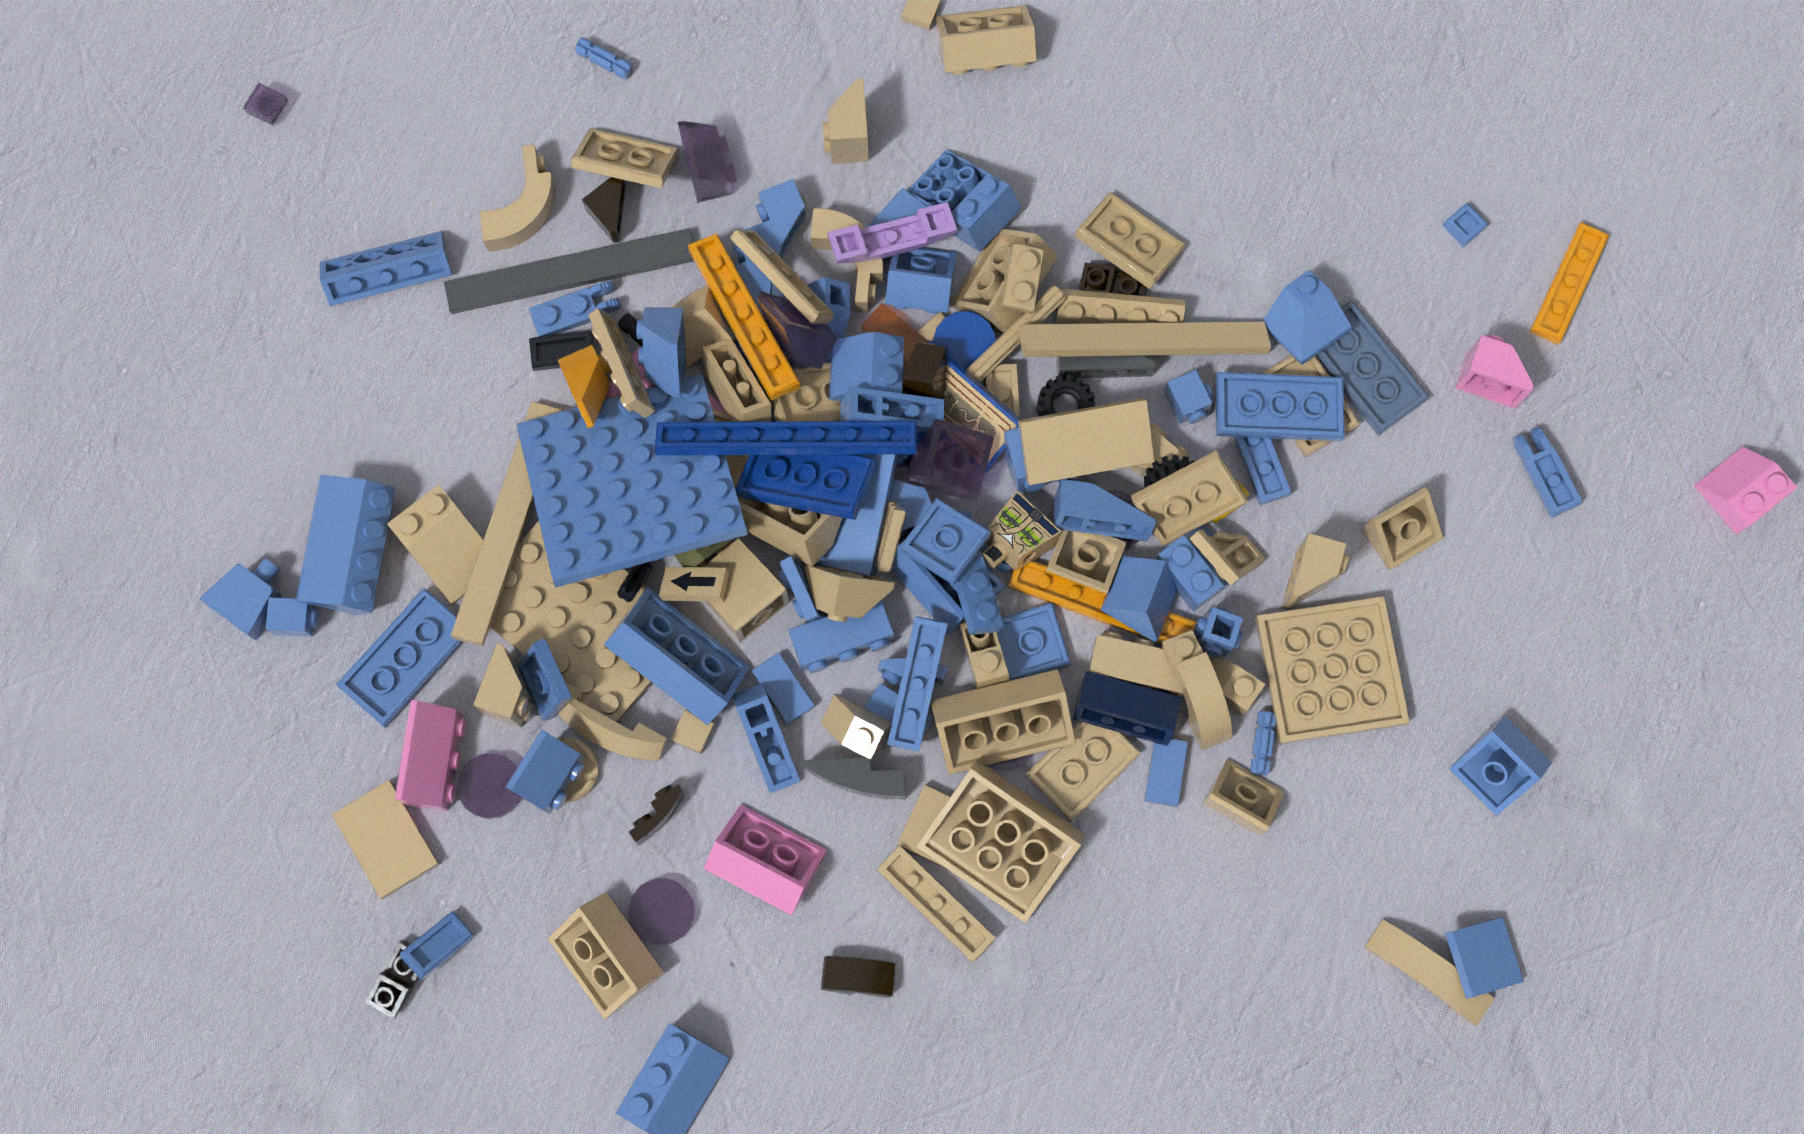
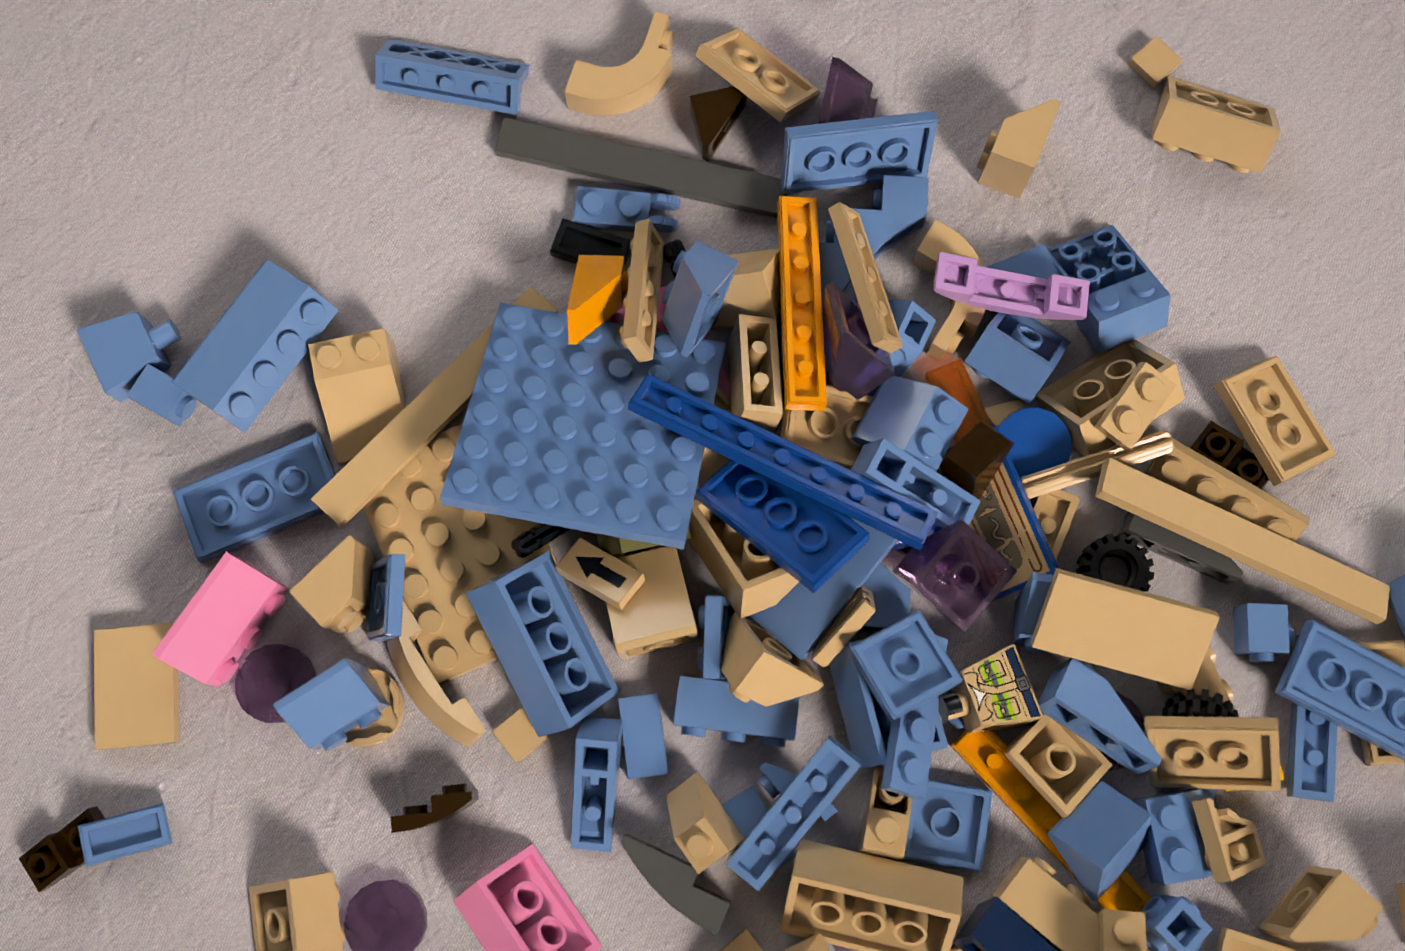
camera: 30 degrees right, 0 degrees up
(730, 184) = (857, 151): none -> medium blue tile

